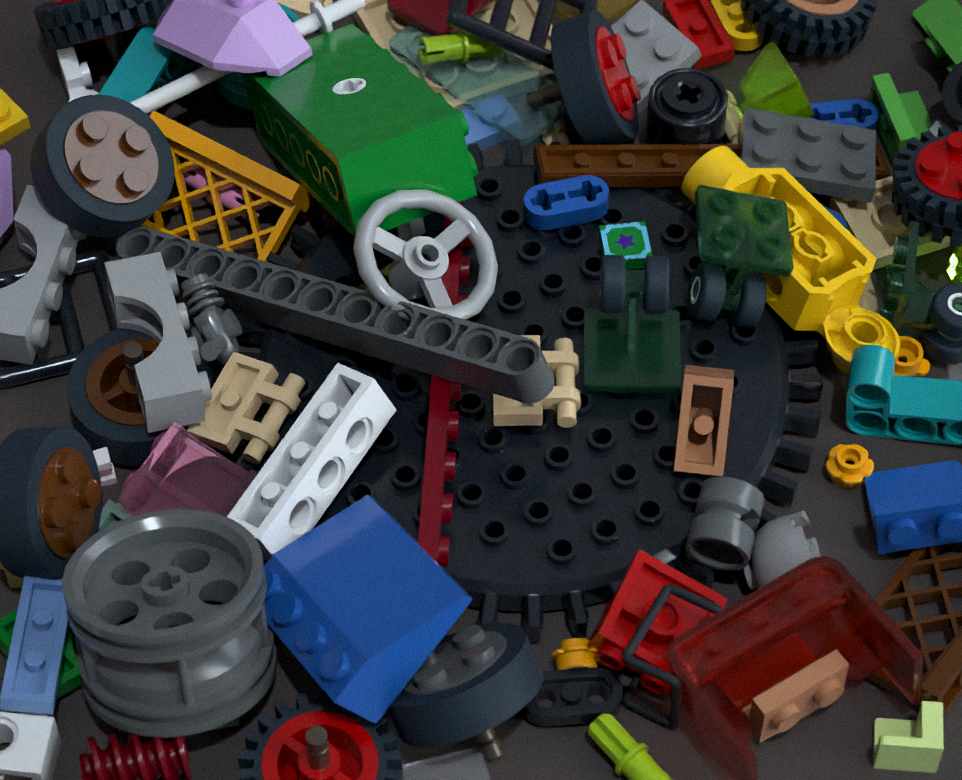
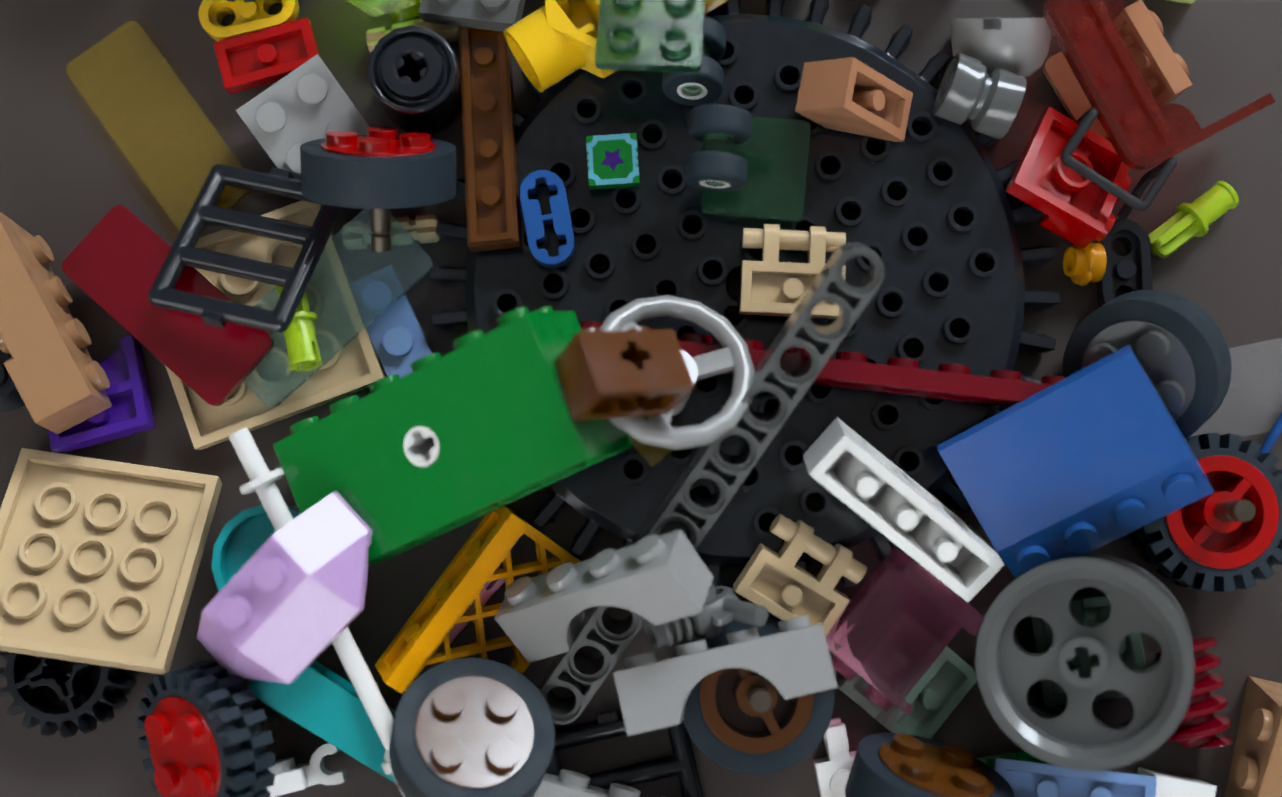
camera: 85 degrees left, 30 degrees up
(240, 248) = (654, 578): none -> light grey arch
(397, 166) = (623, 373): none -> reddish brown brick

